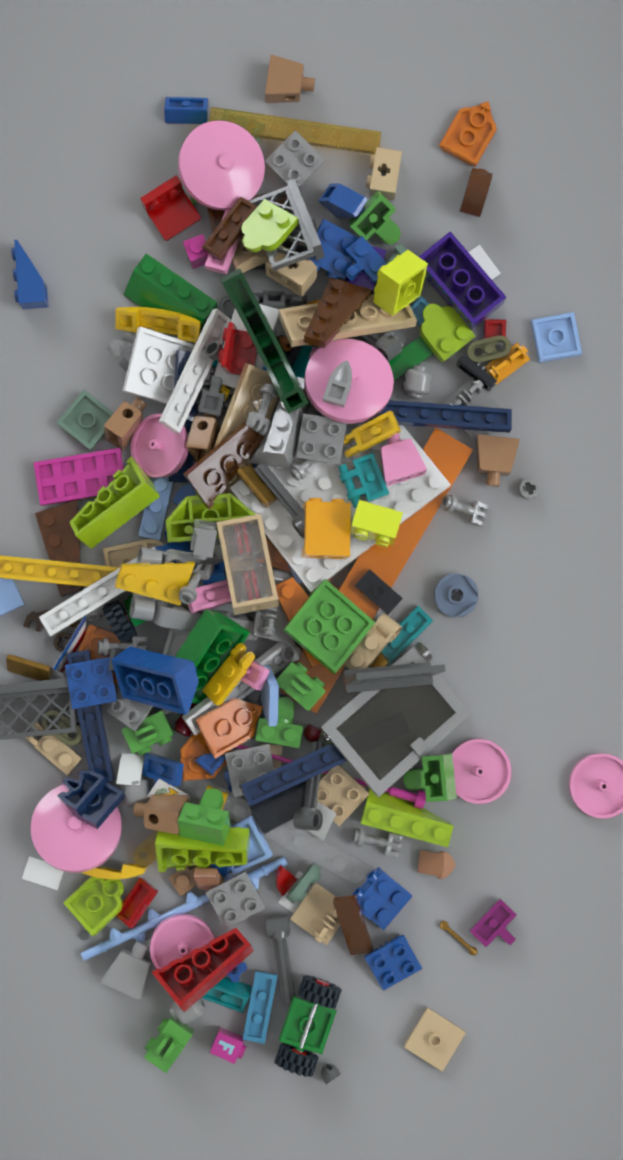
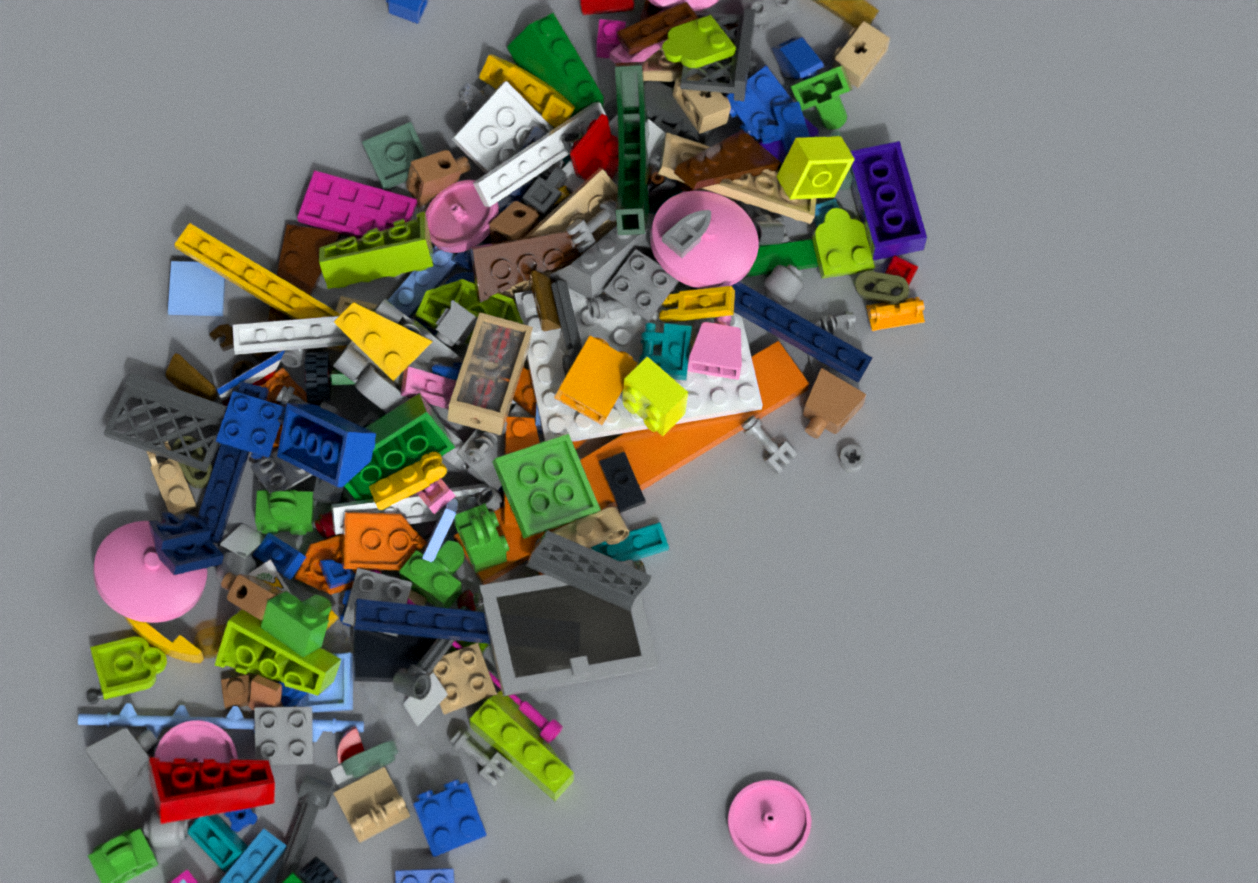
camera: 25 degrees right, 15 degrees down
(42, 873) = (84, 609): white sticker -> none
(136, 902) = (171, 689): red tile -> none
(188, 593) = (409, 367): light grey hinge -> none
(353, 924) = (401, 826): reddish brown tile -> none
(435, 778) = (580, 712): bright green brick -> none
(435, 863) = (533, 811): nougat tile -> none
(443, 595) = (696, 522): sand blue plate -> none
(469, 133) = (977, 57): orange tile -> none
(476, 192) = (952, 117): reddish brown brick -> none
(476, 371) = (856, 304): black plate -> none
(480, 771) = (635, 736): bright pink piece -> none
(484, 261) = (925, 197): white sticker -> none
(556, 337) = (966, 312): light blue tile -> none

